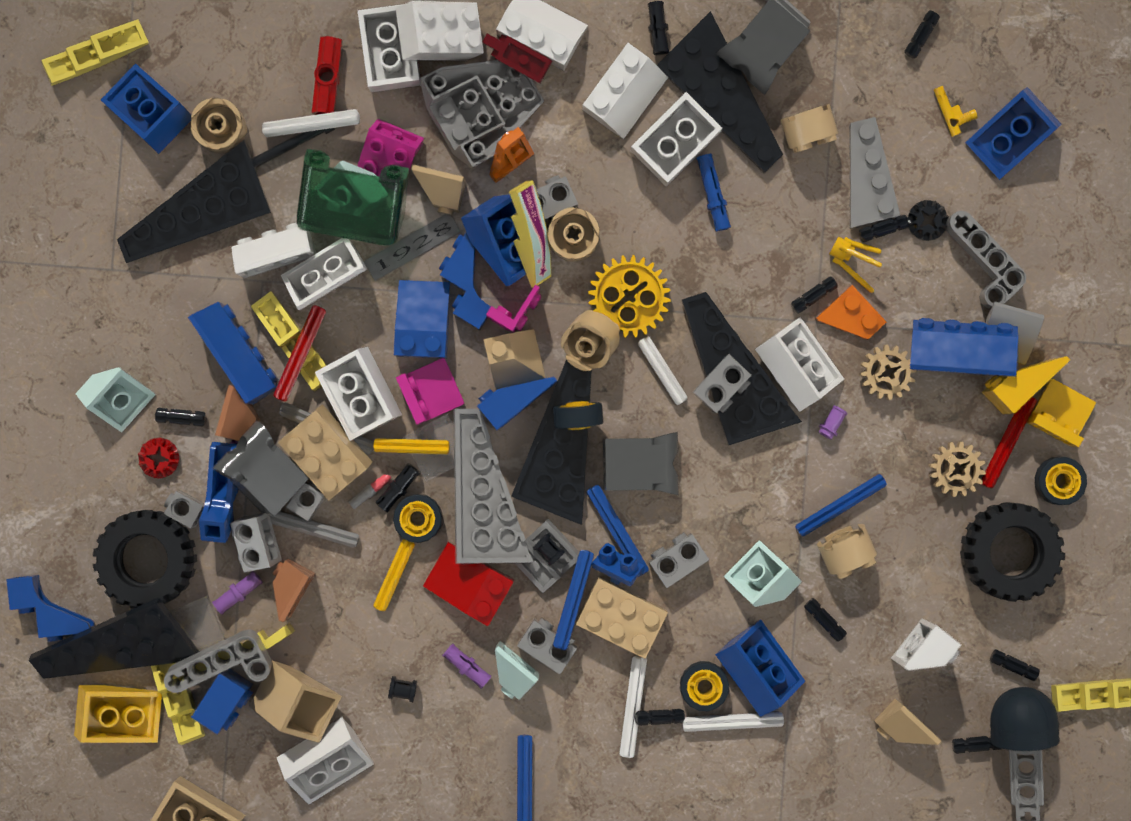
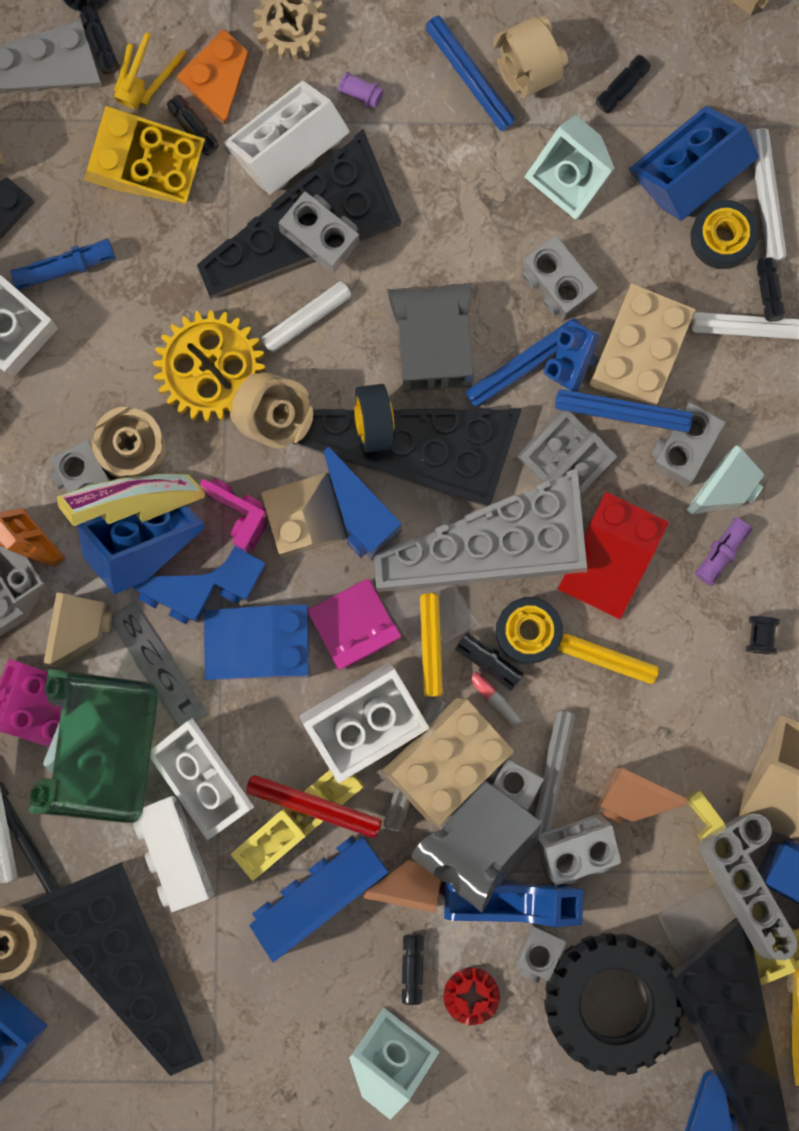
camera: 95 degrees left, 5 degrees down
(237, 592) = (649, 872): medium lavender pin -> none
(549, 549) = (557, 449): black bush -> none
(789, 257) = (143, 157): none -> yellow slope

